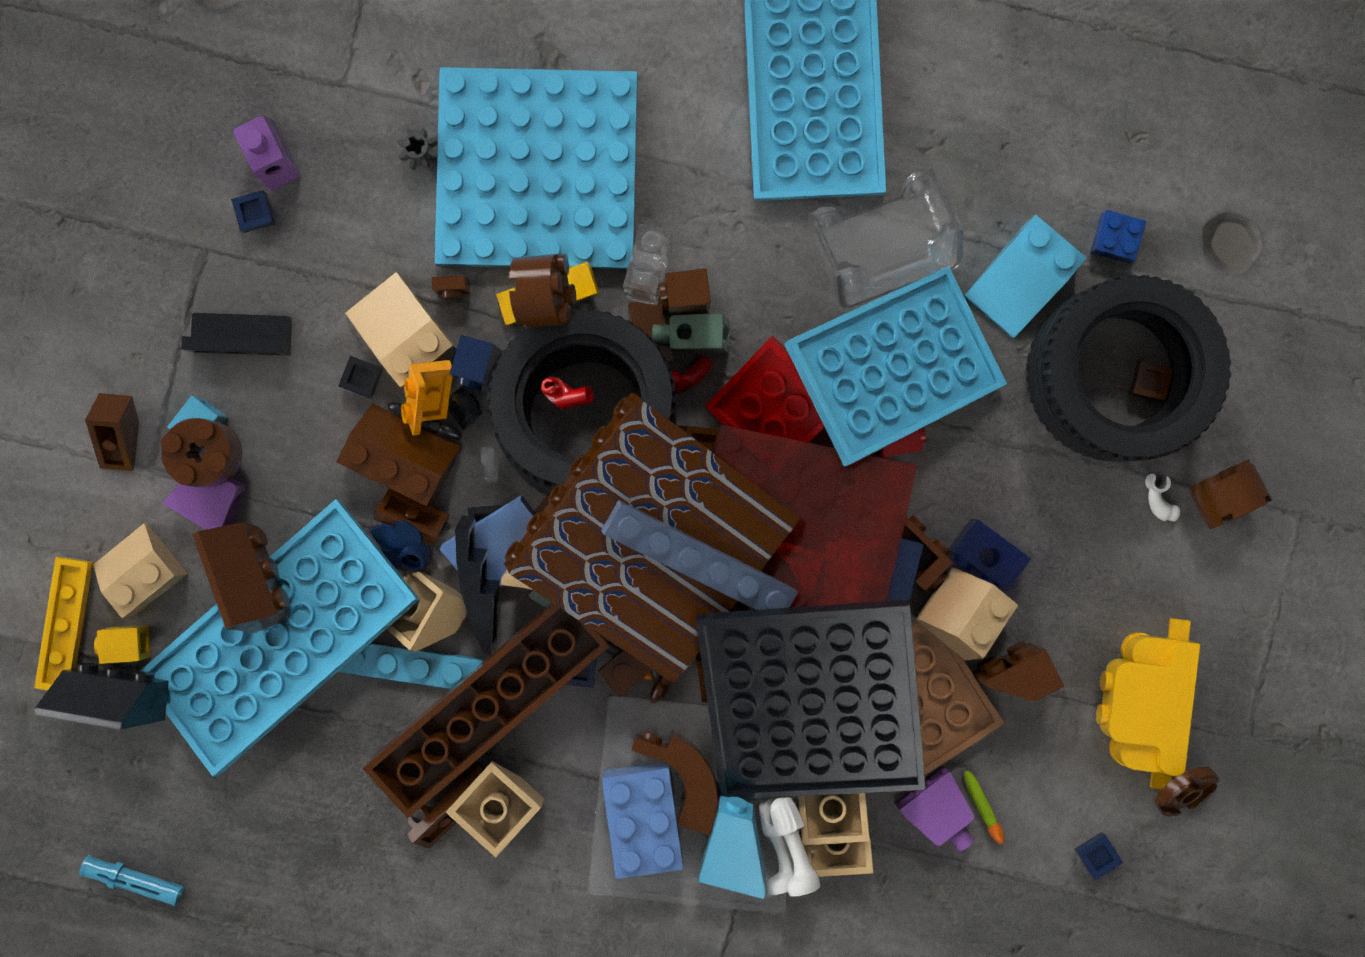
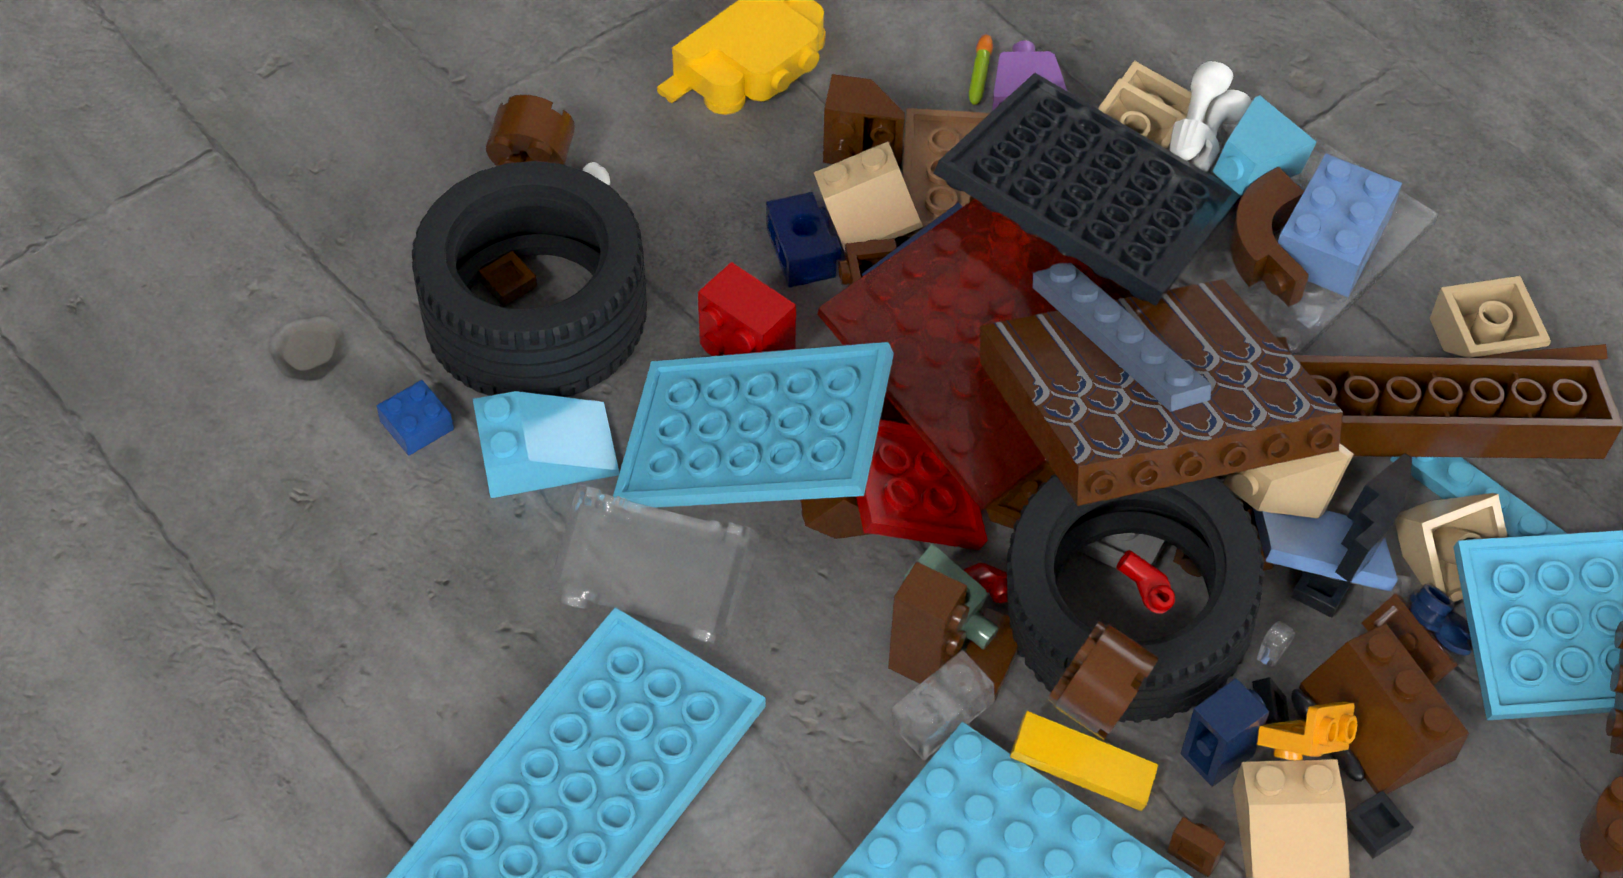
camera: 145 degrees left, 35 degrees down
(968, 447) = (744, 315): none -> red brick

